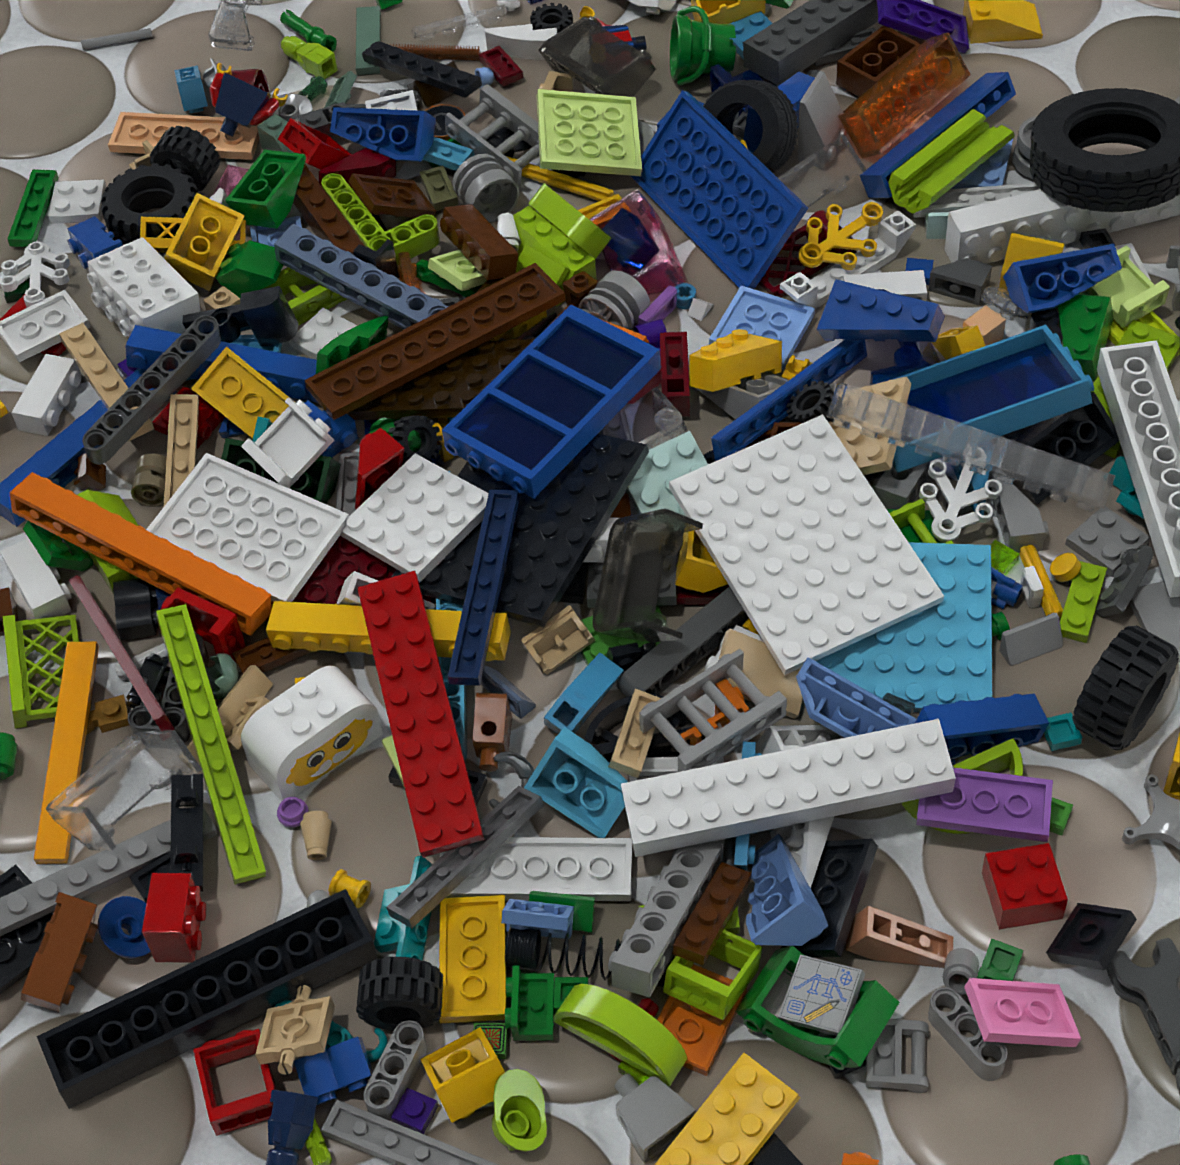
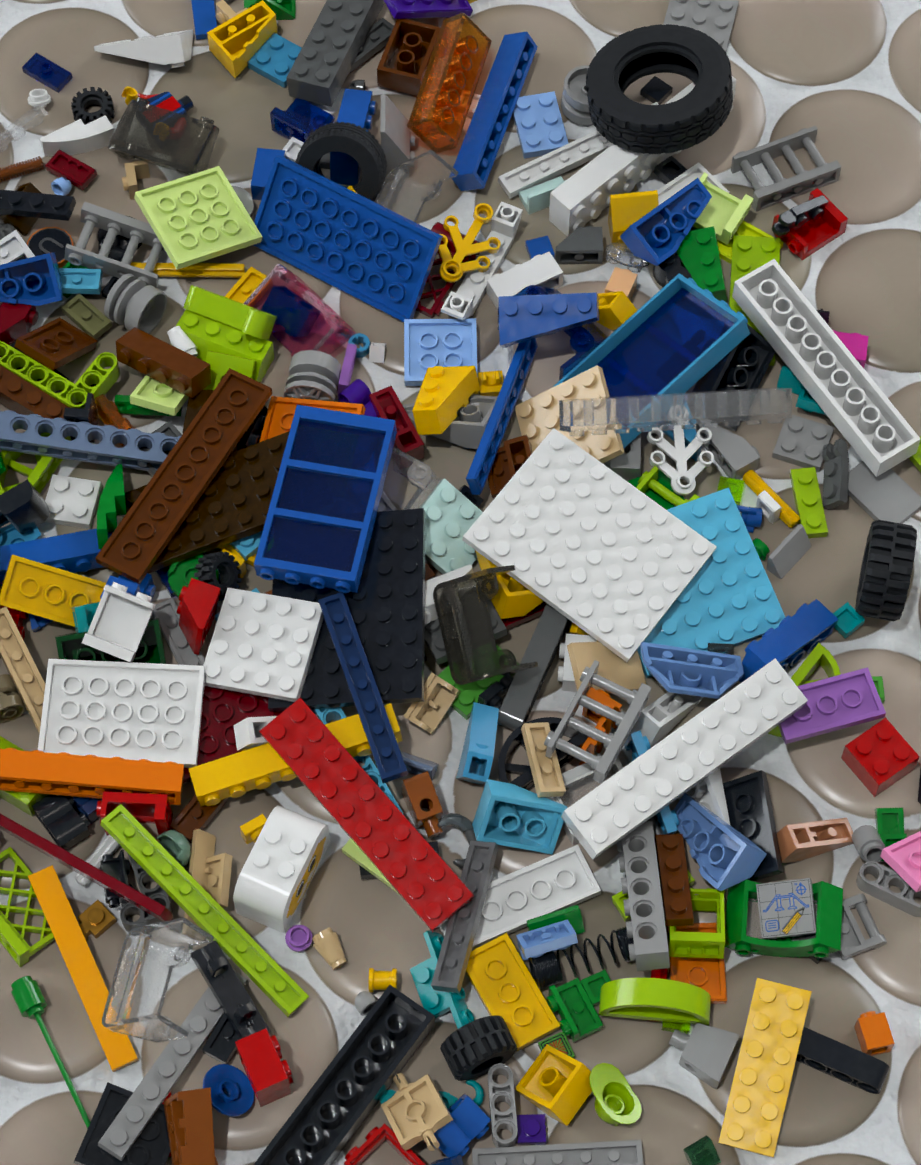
camera: 30 degrees left, 10 degrees up
(578, 287) = (273, 373): reddish brown bracket -> none
(699, 46) = (247, 94): green piece -> none
(810, 402) = (519, 409): black tyre -> none
(946, 161) = (518, 138): lime piece -> none
(1065, 567) = (784, 479): yellow tile -> none

